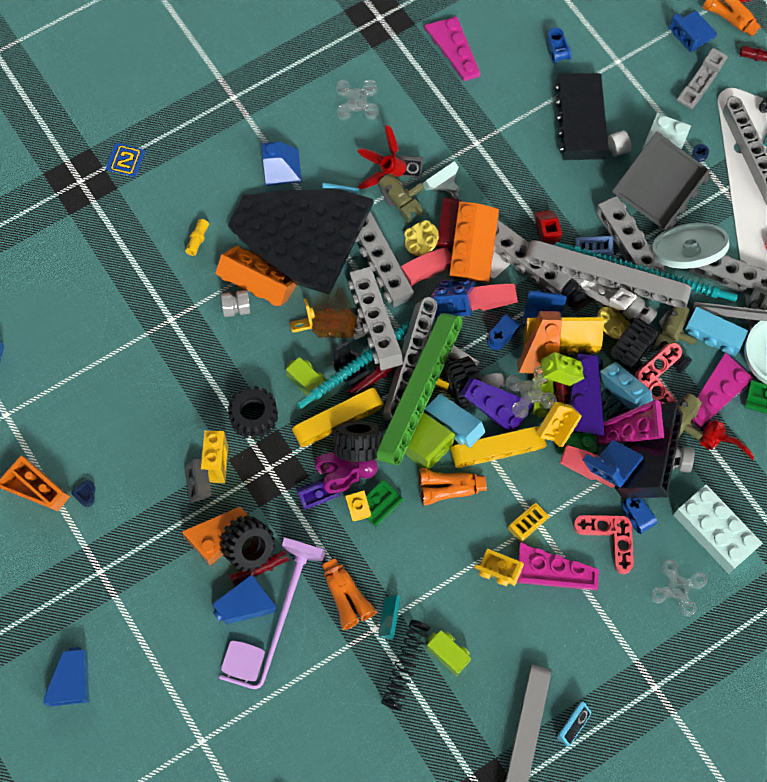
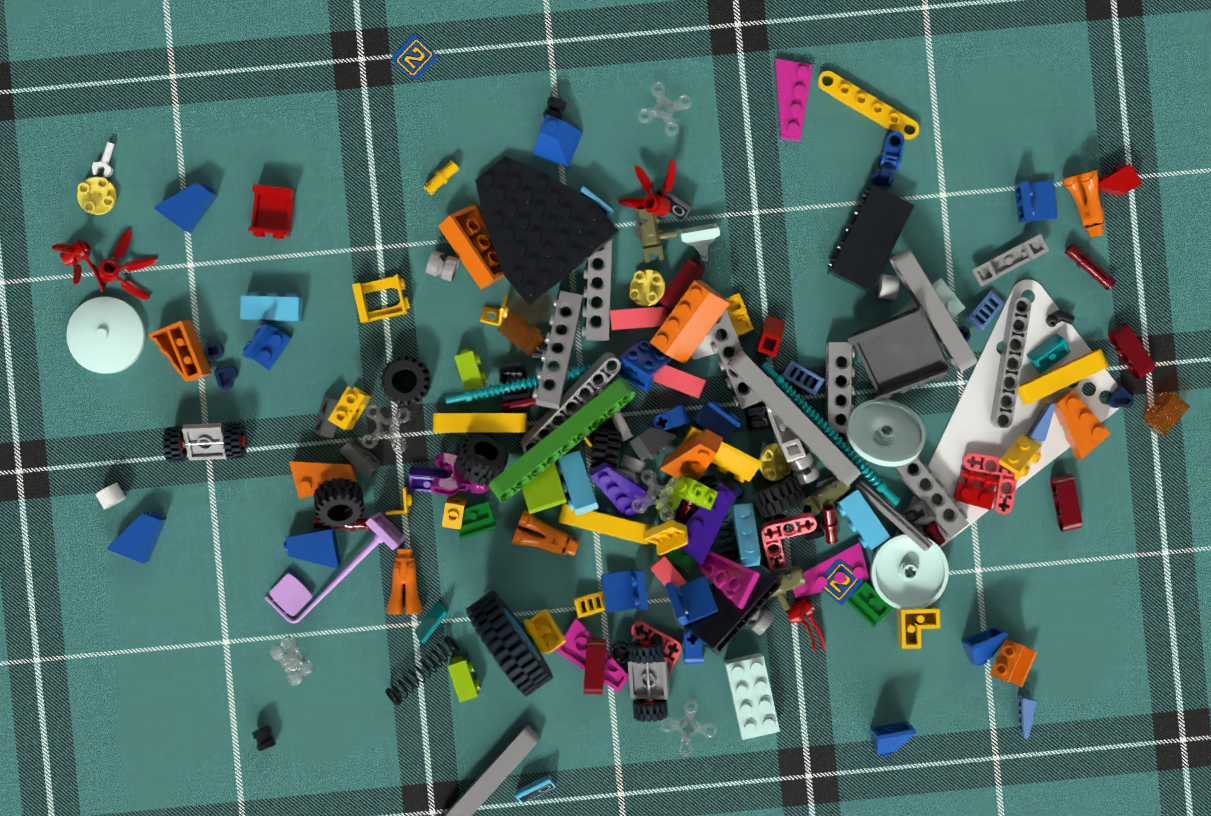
camera: 30 degrees right, 20 degrees up
(24, 654) = (110, 496): none -> white piece
(59, 471) = (214, 356): none -> dark blue bush
(60, 332) = (272, 211): none -> red panel
(92, 557) = (204, 442): none -> plate
(98, 412) = (271, 307): none -> medium azure brick
(109, 445) = (266, 345): none -> blue bracket
(203, 338) = (392, 282): none -> yellow panel
(245, 500) = (360, 457): none -> dark grey slope
(249, 459) = (393, 422): none -> clear gear
(264, 136) = (555, 107): none -> black wheel
(276, 716) = (292, 660): none -> clear gear
(310, 519) = (407, 498): none -> yellow bracket
(475, 578) = (509, 643): none -> black wheel
(499, 354) = (650, 442): none -> dark grey slope
(510, 221) = (739, 316): none -> yellow slope
(515, 25) = (867, 105): none -> yellow plate
(550, 494) = (624, 590): none -> blue bracket
(562, 65) = (882, 175): none -> dark blue tile
(562, 573) = (594, 666): none -> dark red beam
(576, 548) = (618, 654): none -> black wheel
(618, 559) = (648, 680): none -> plate
(647, 124) = (938, 316): none -> light grey beam
(691, 348) = (829, 524): none -> dark red pin
(705, 137) = (986, 320): none -> medium blue slope
(738, 398) = (840, 591): none -> sticker

